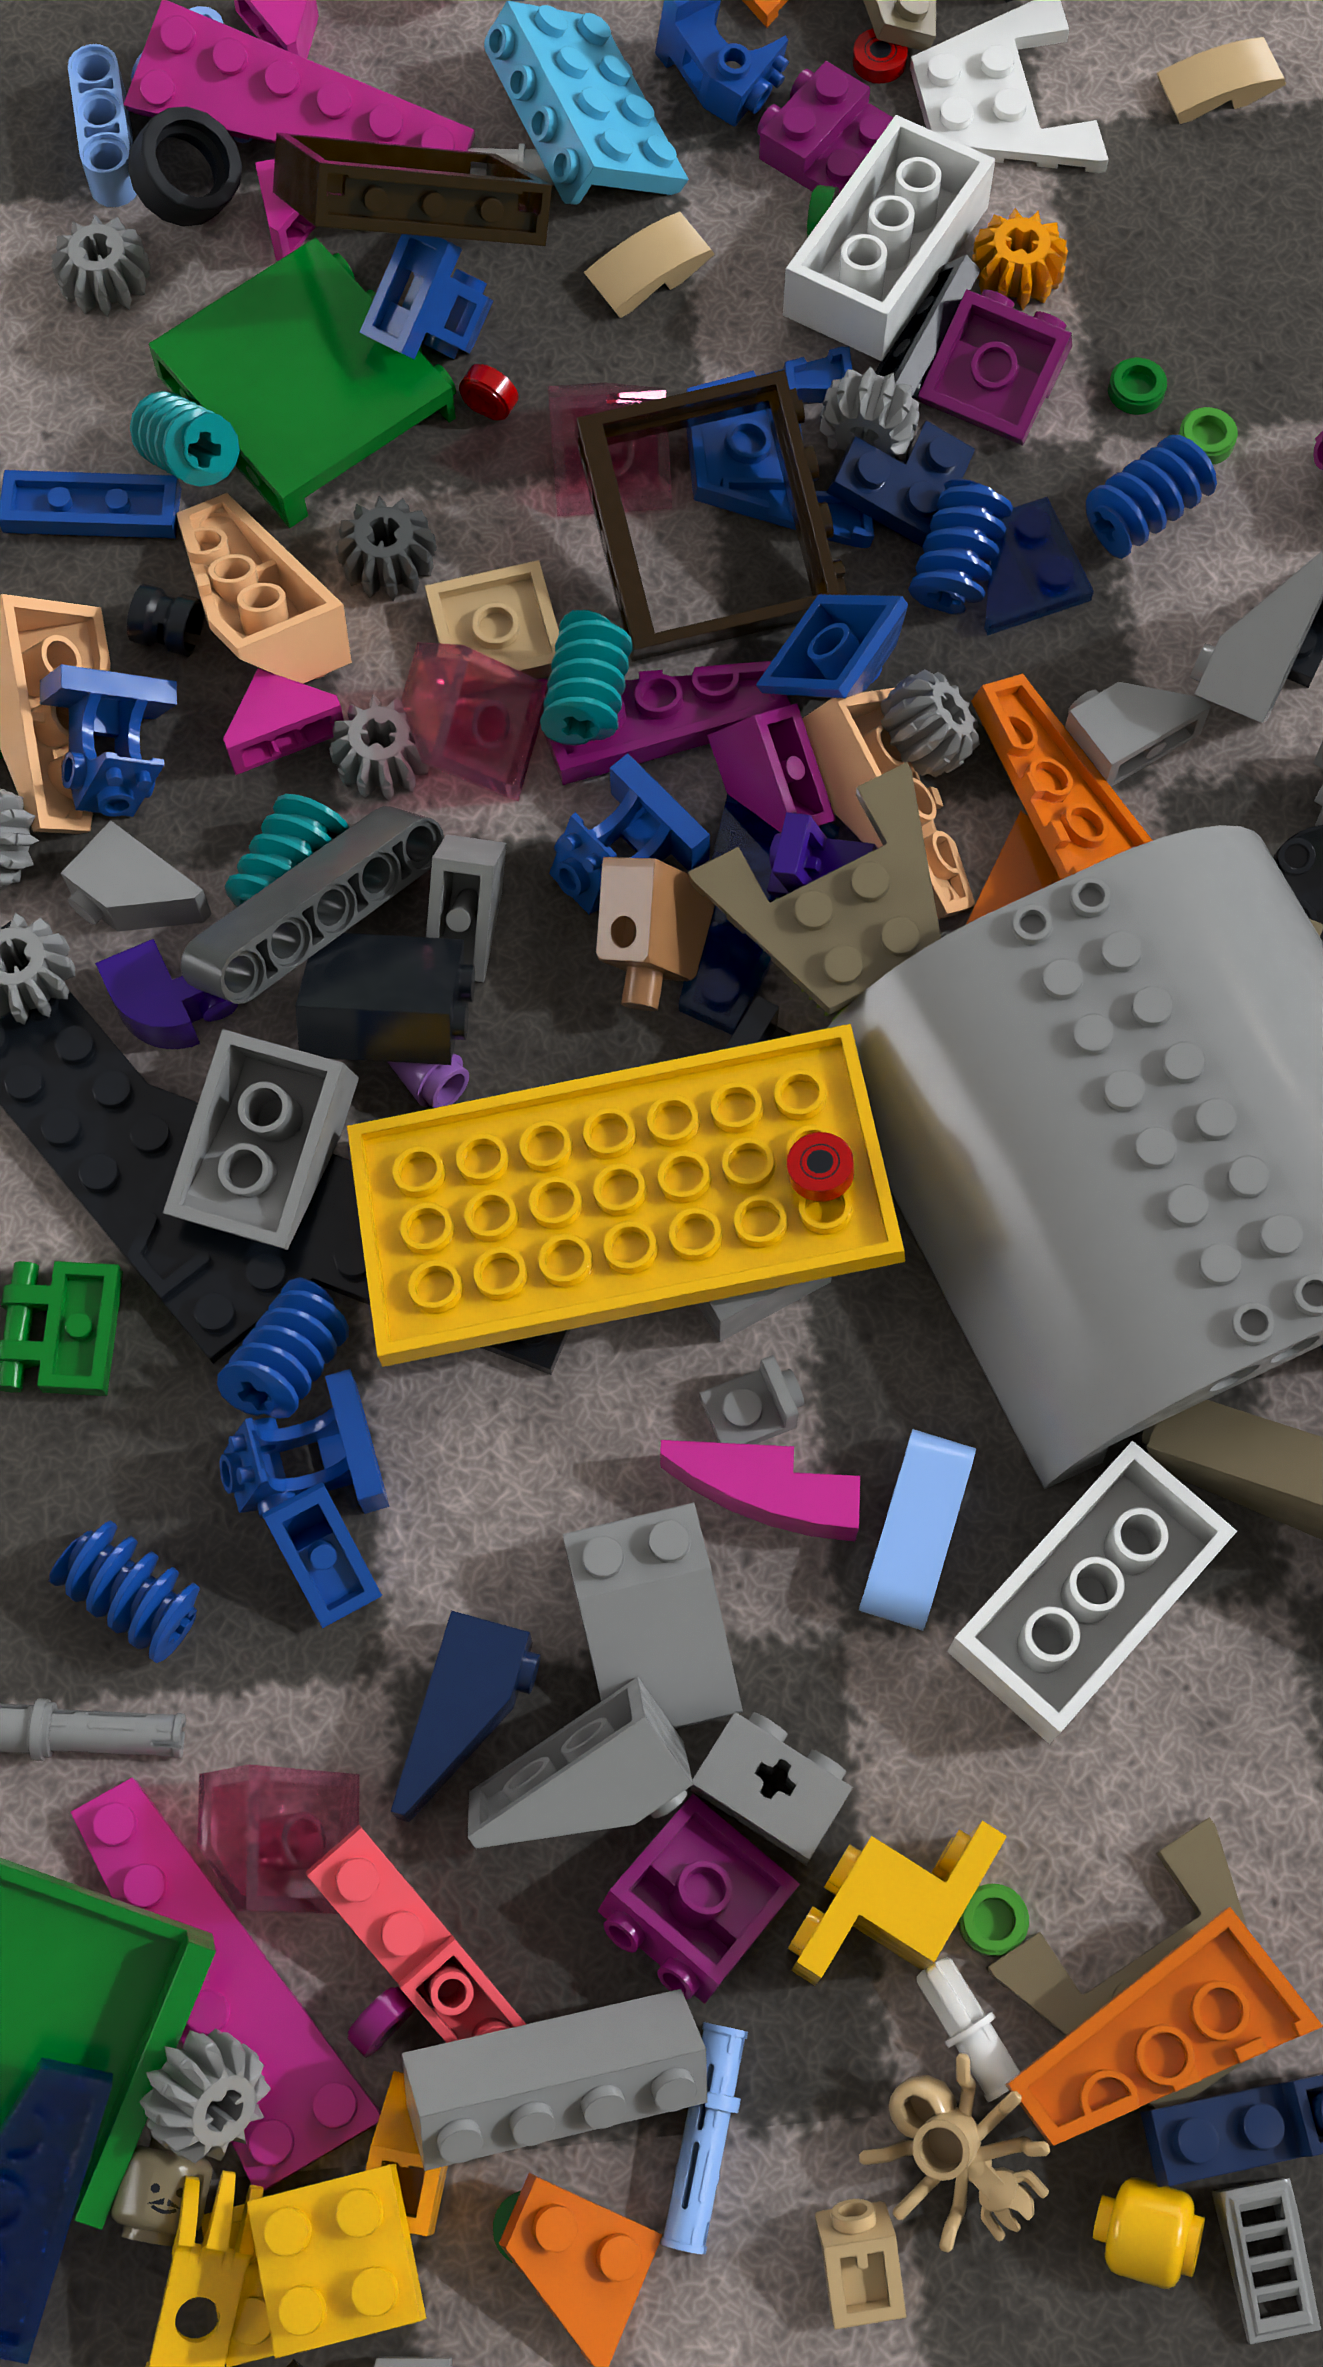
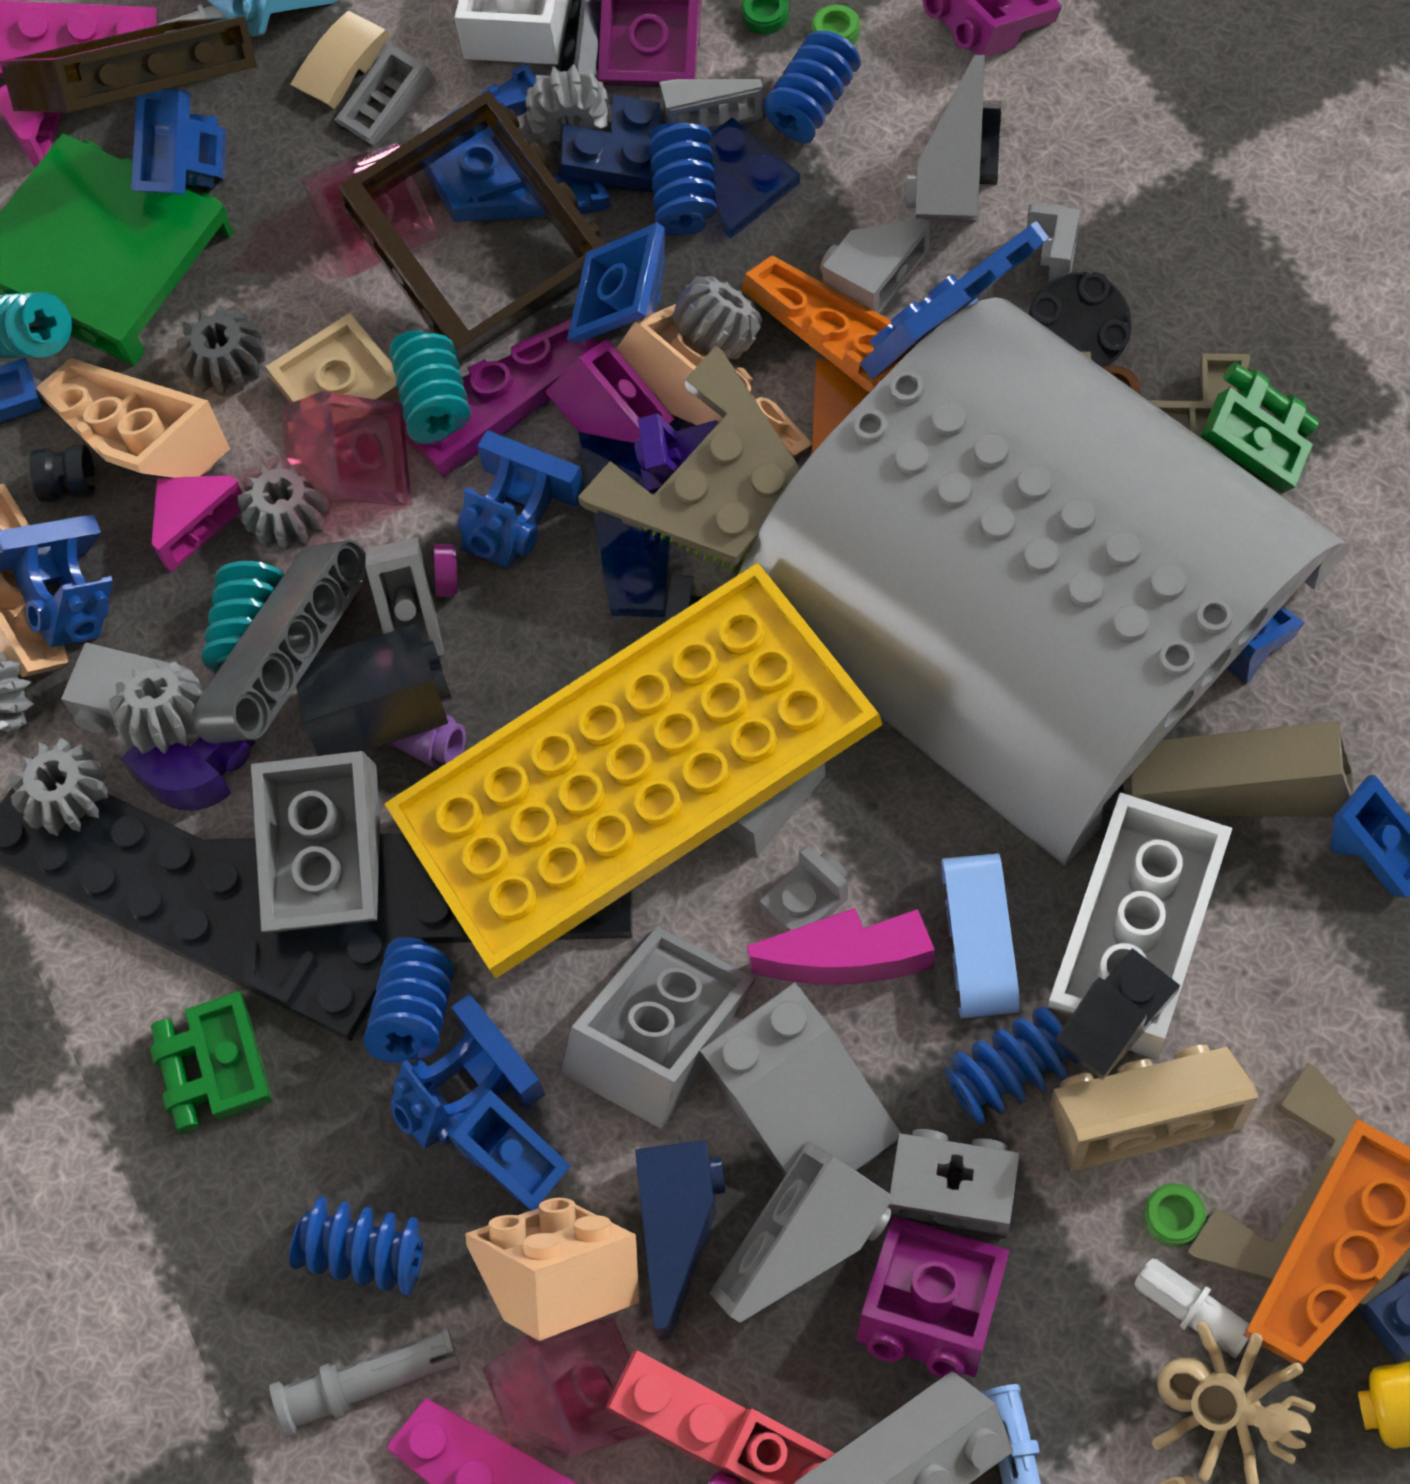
camera: 15 degrees left, 5 degrees down
(151, 924) = (156, 707): none -> light grey gear
(317, 1701) = (556, 1267): none -> light nougat slope
(488, 392) = (253, 201): red tile -> none
(521, 891) = (445, 570): none -> magenta tile
(530, 1480) = (649, 1024): none -> light grey slope
(650, 926) = (563, 553): medium nougat torso -> none
(707, 330) = (381, 74): none -> light grey slope
(820, 1166) = (784, 677): red tile -> none
(887, 1685) = (1008, 1064): none -> blue piece
(895, 1900) = (1092, 1227): yellow bracket -> none
(1019, 1684) = (1116, 1013): none -> black slope
(1025, 1794) = (1151, 1106): none -> tan slope
(1029, 471) = (706, 99): none -> light grey slope
(1181, 813) = (945, 300): none -> blue wing

